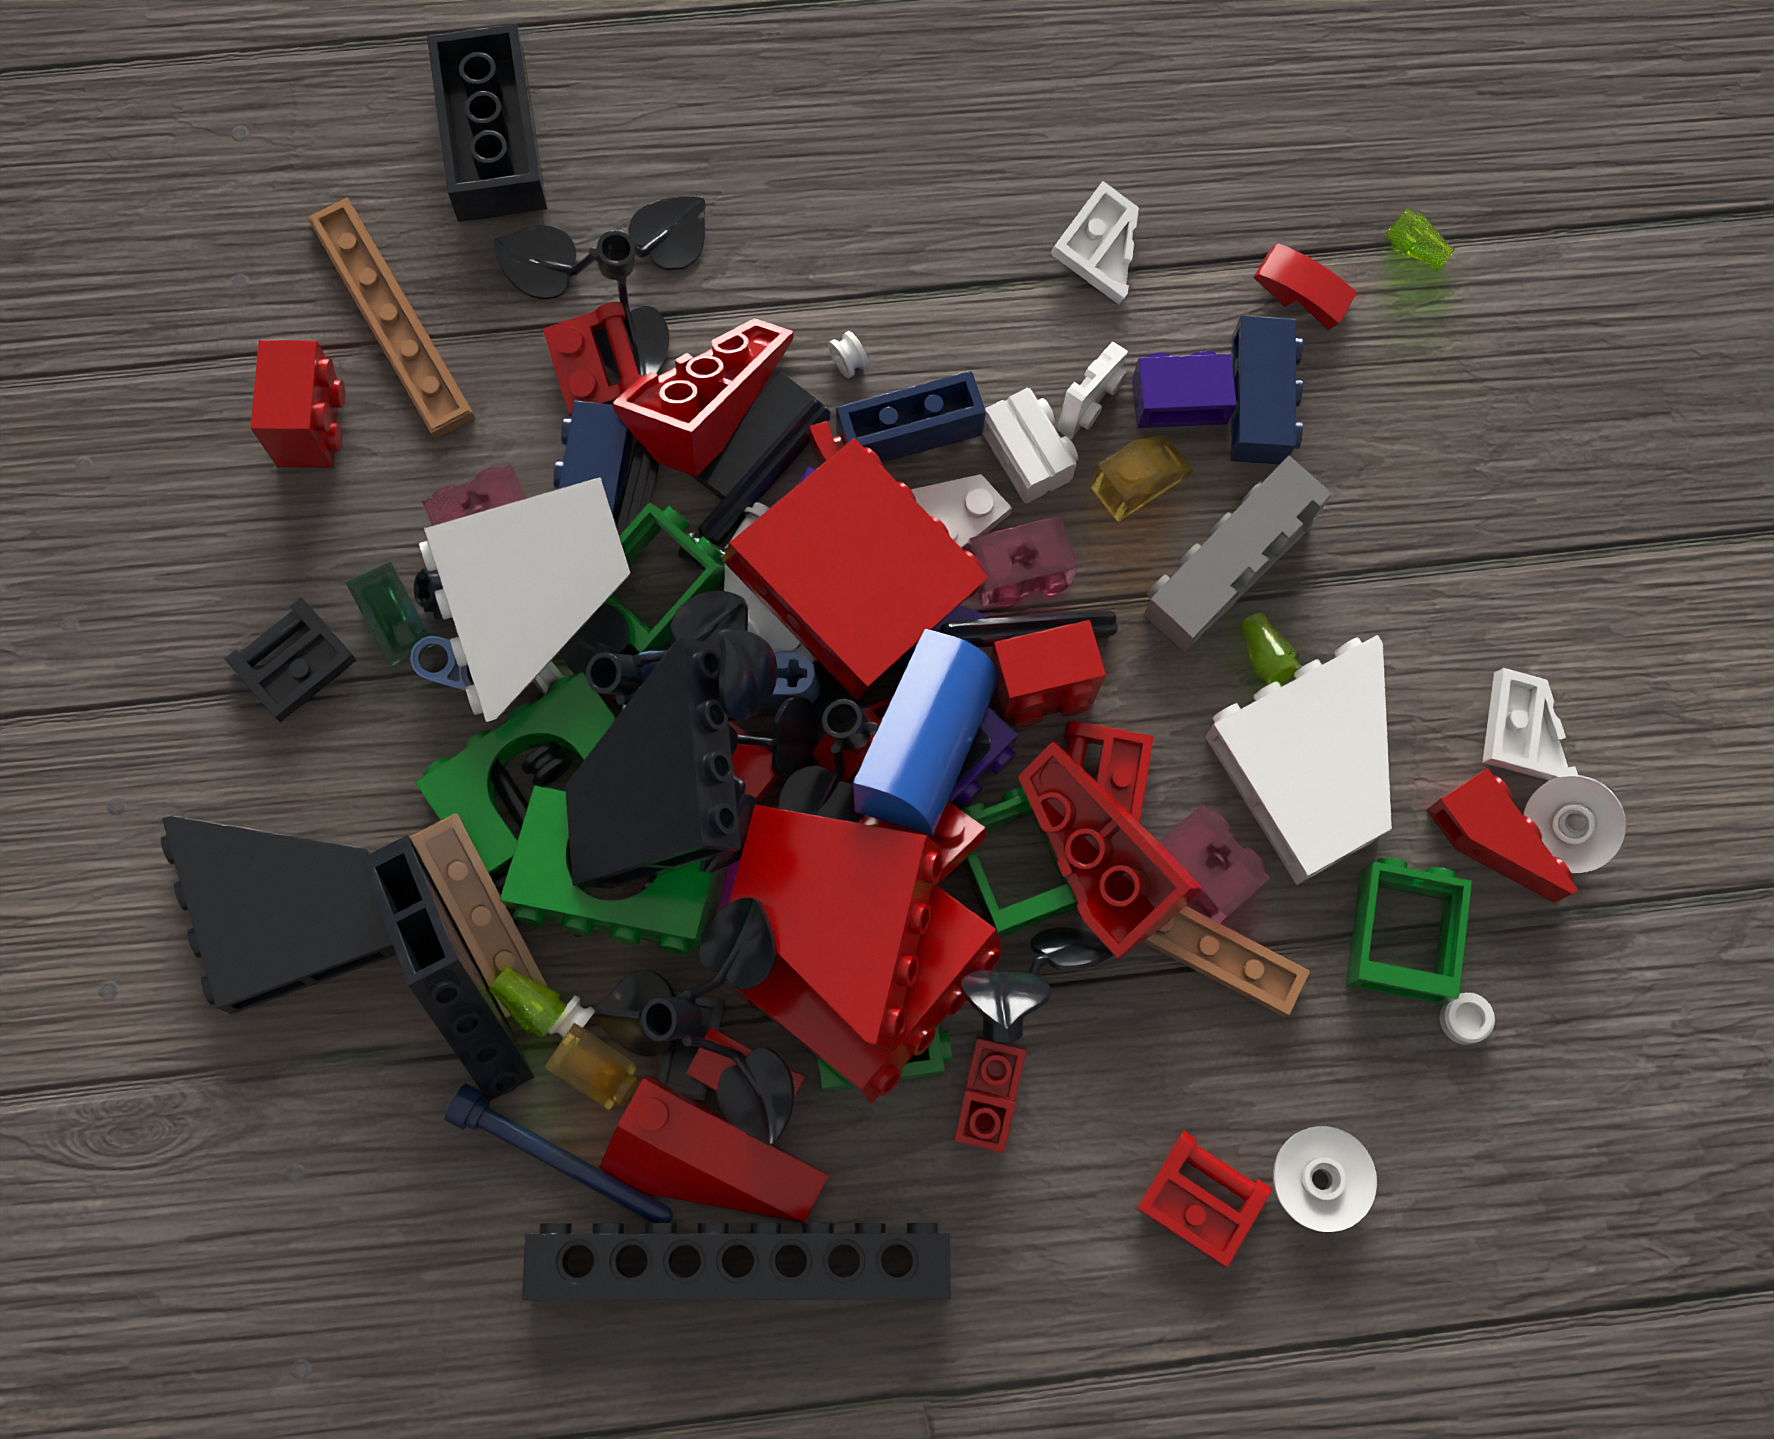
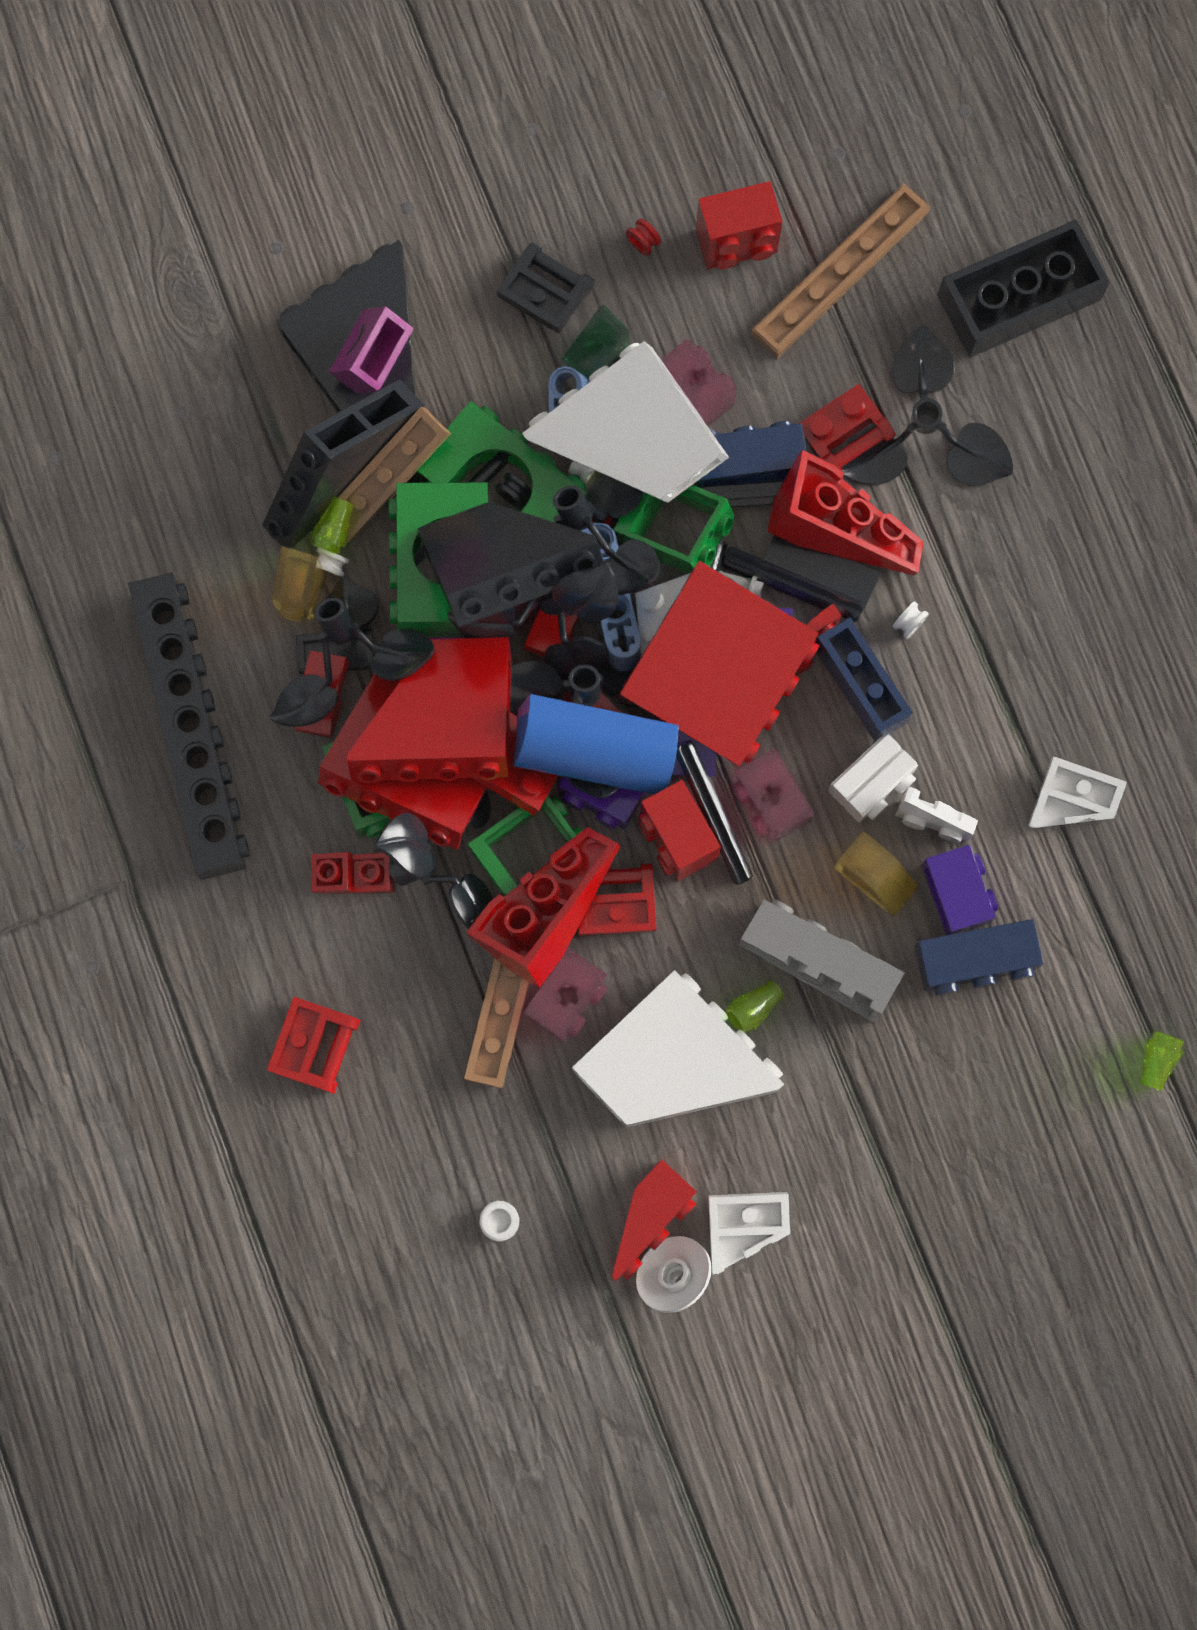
camera: 80 degrees right, 5 degrees up
(266, 524) = (643, 237): none -> red bush
(308, 884) = (371, 350): none -> magenta brick
(473, 1111) = (251, 513): dark blue piece -> none
(695, 1155) = (258, 666): red wedge -> none
(965, 506) = (800, 735): white wing -> none
(1298, 278) = (1087, 971): red slope -> none
(1349, 1174) = (331, 1118): white dish -> none
(1399, 981) = (512, 1166): green window -> none

